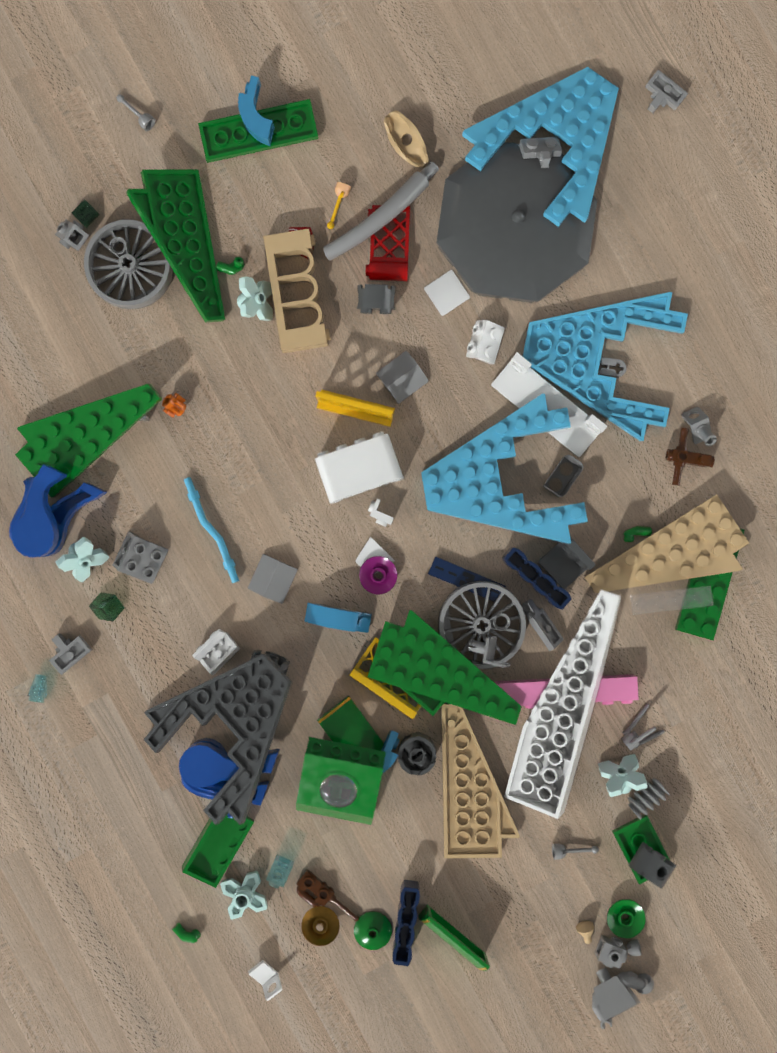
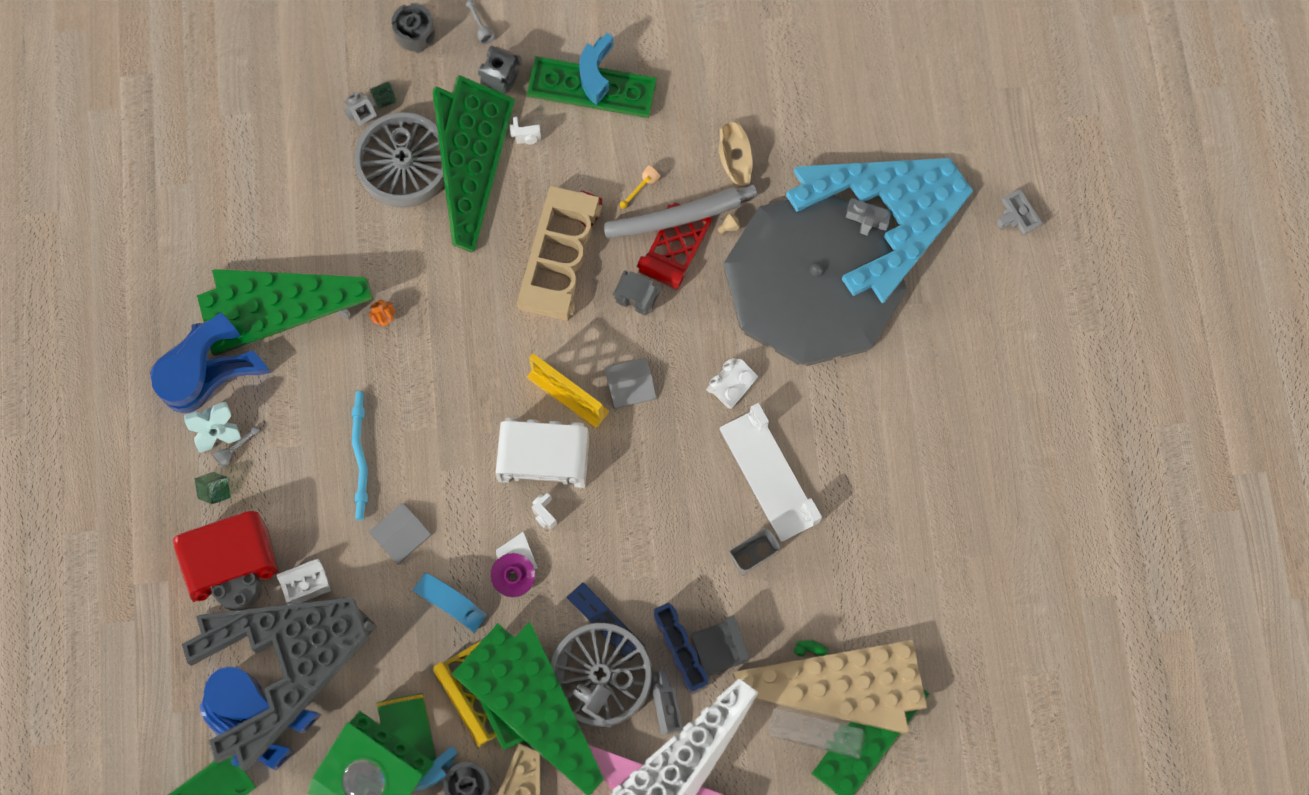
camera: 20 degrees right, 15 degrees down
(38, 689) = (97, 545): clear light blue cone -> none
(68, 652) = (149, 519): light grey hinge -> none
(82, 141) = (413, 27): none -> dark grey brick
(103, 577) = (224, 456): none -> light grey hinge
(139, 558) = (272, 452): light grey bracket -> none
(143, 657) = (224, 553): none -> red windscreen
(165, 678) = (238, 593): none -> dark grey brick
(174, 148) = (499, 69): none -> dark grey brick
(222, 198) = (525, 134): none -> white bracket
(232, 268) = (504, 205): green arm -> none
(253, 299) = (512, 242): light aqua plant -> none
(427, 204) = (730, 223): none -> tan rock
(446, 292) = (713, 318): white sticker -> none
(470, 486) = (653, 518): medium azure wing -> none
(570, 351) = (818, 426): medium azure wing -> none
(608, 362) = (853, 457): light grey beam -> none
(681, 456) = (890, 585): reddish brown piece -> none
(700, 427) = (923, 562): light grey bracket -> none

